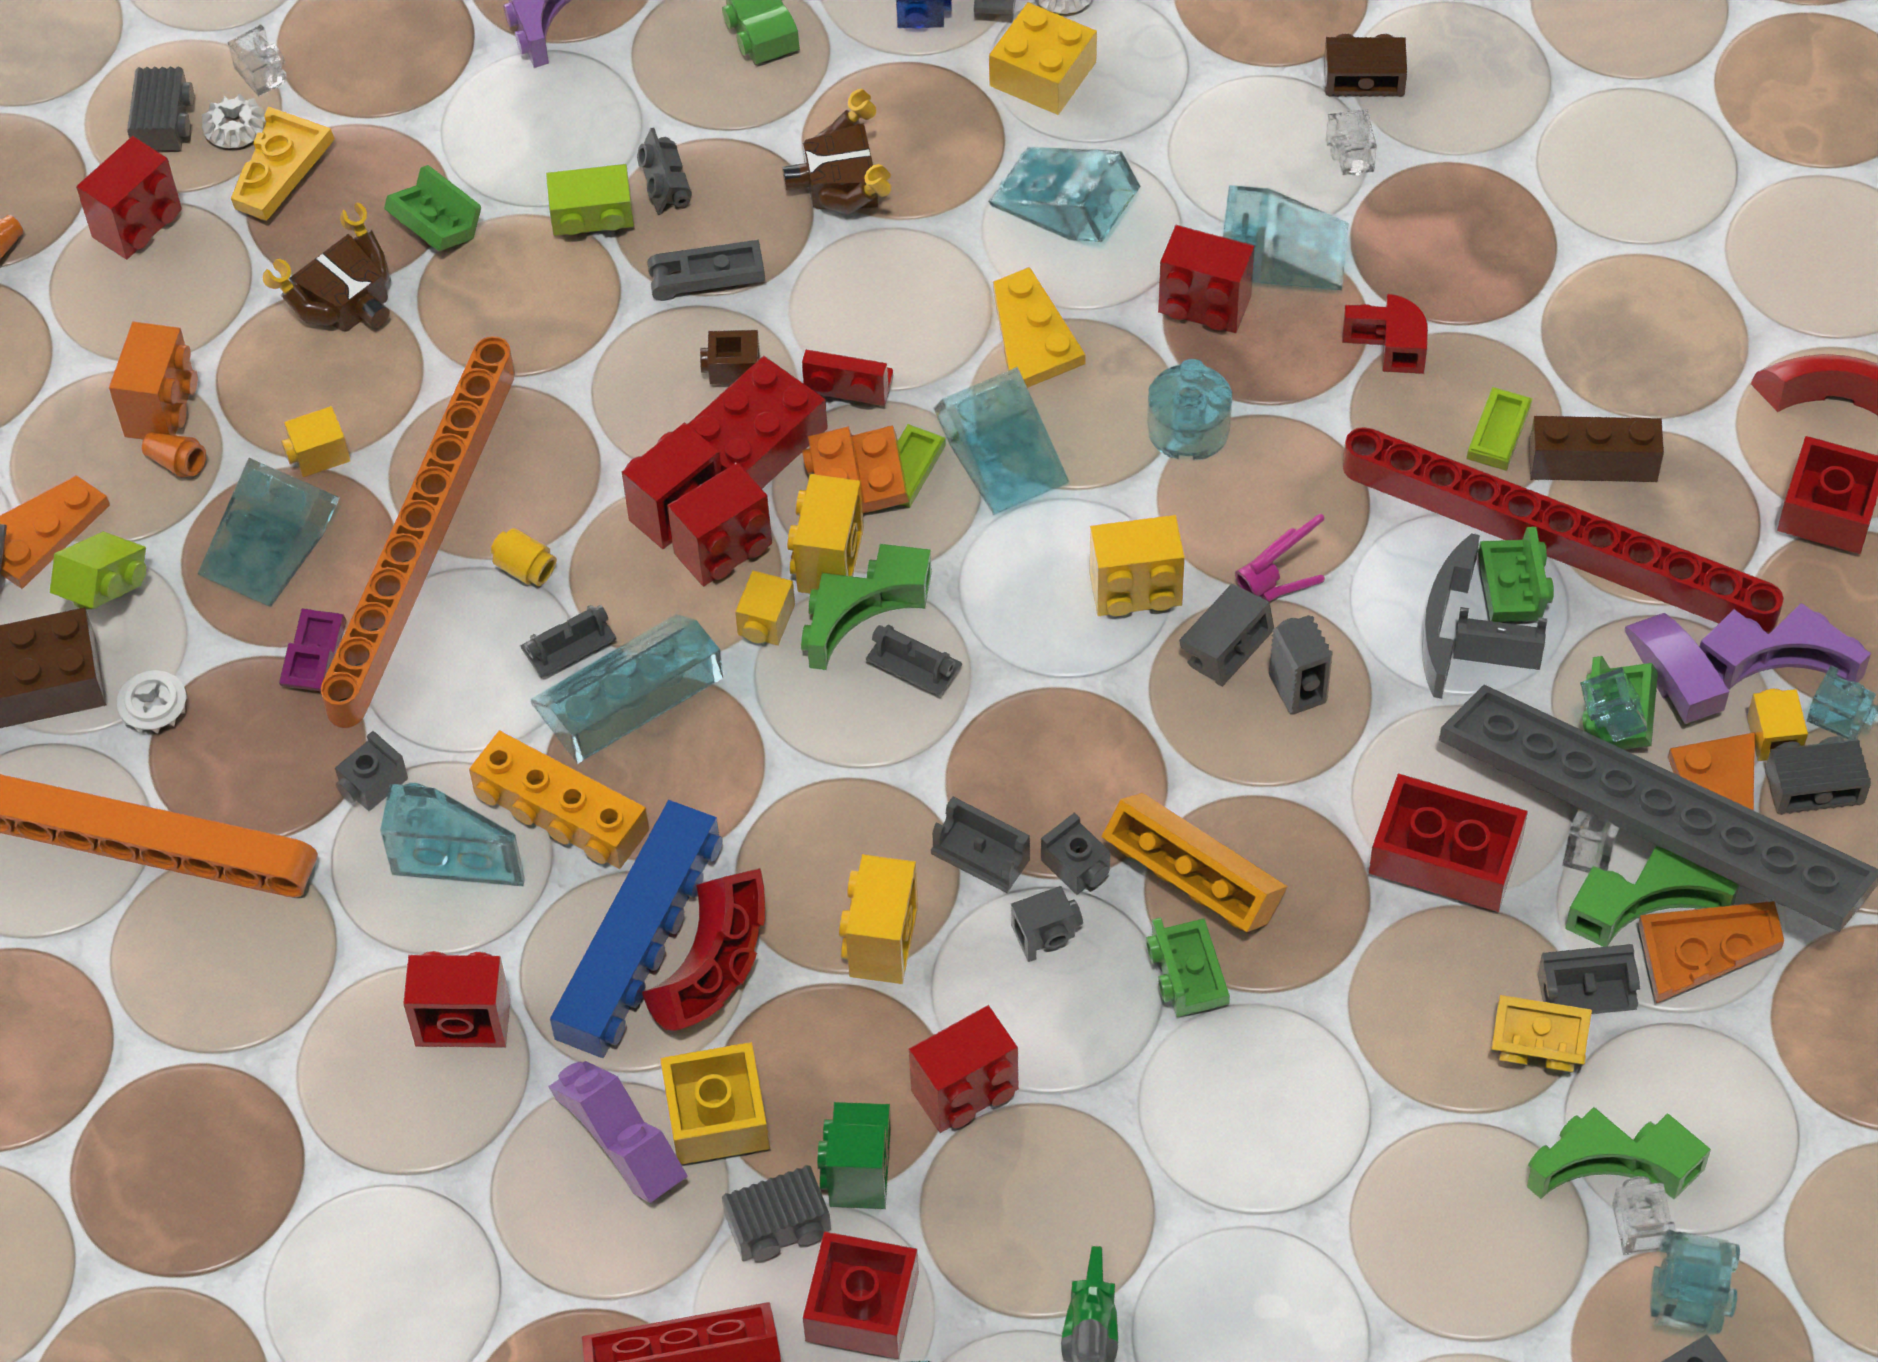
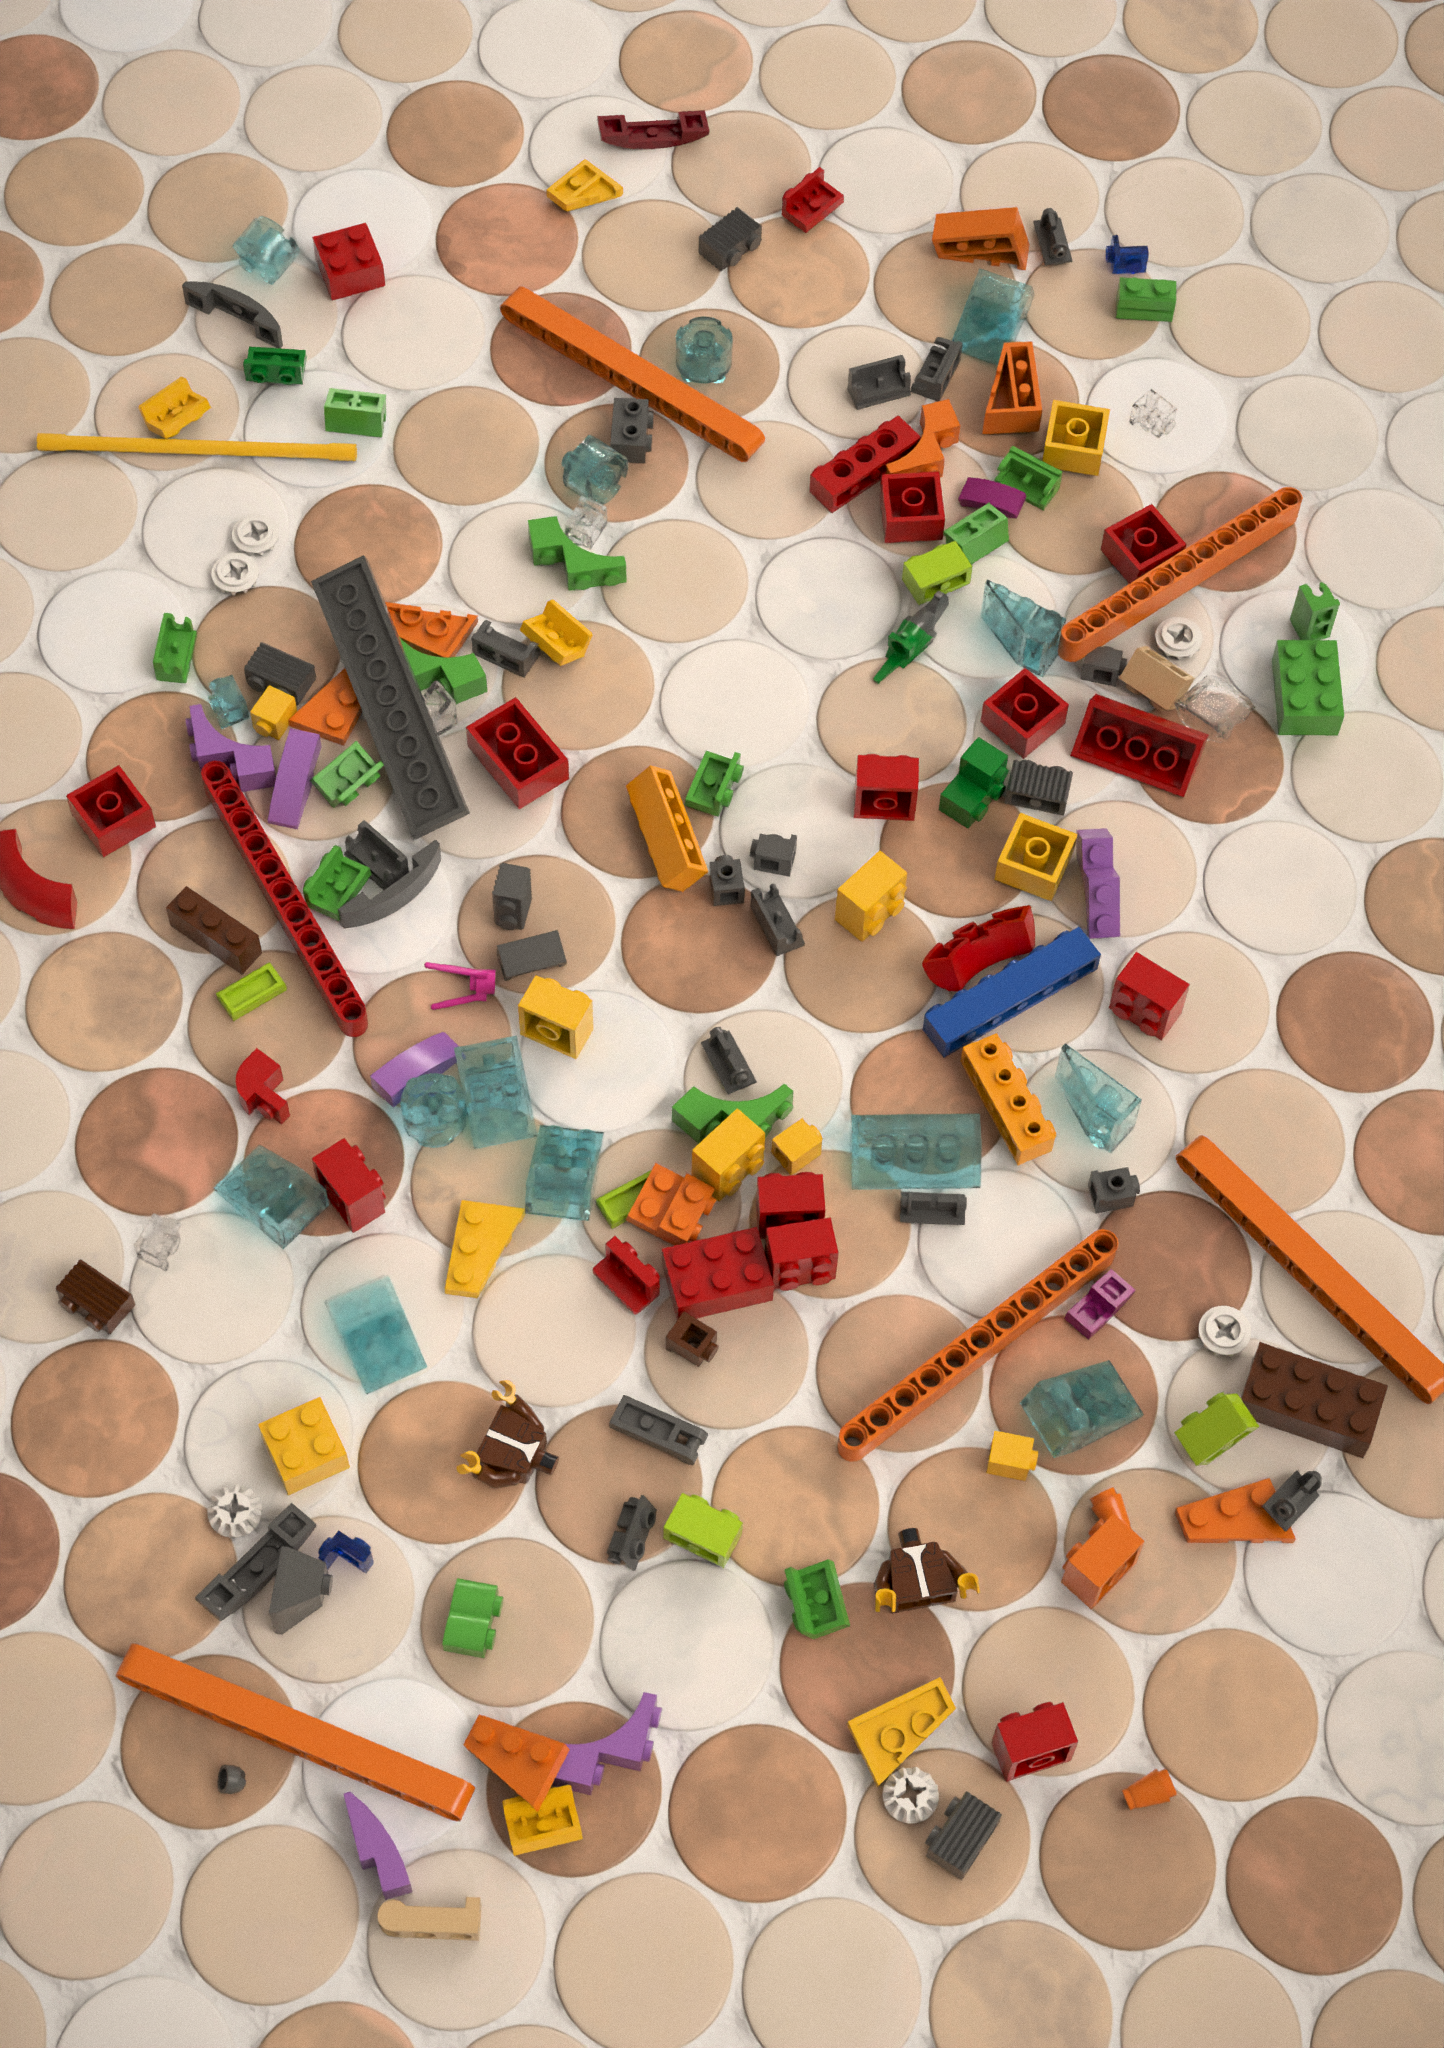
camera: 150 degrees left, 5 degrees up
(257, 60) = (862, 1831): clear brick -> none
(523, 557) = (925, 1280): yellow brick -> none
(1143, 467) = (495, 1092): none -> clear light blue slope
(1247, 446) = (425, 1057): none -> medium lavender slope
(1614, 704) = (364, 752): clear light blue brick -> none

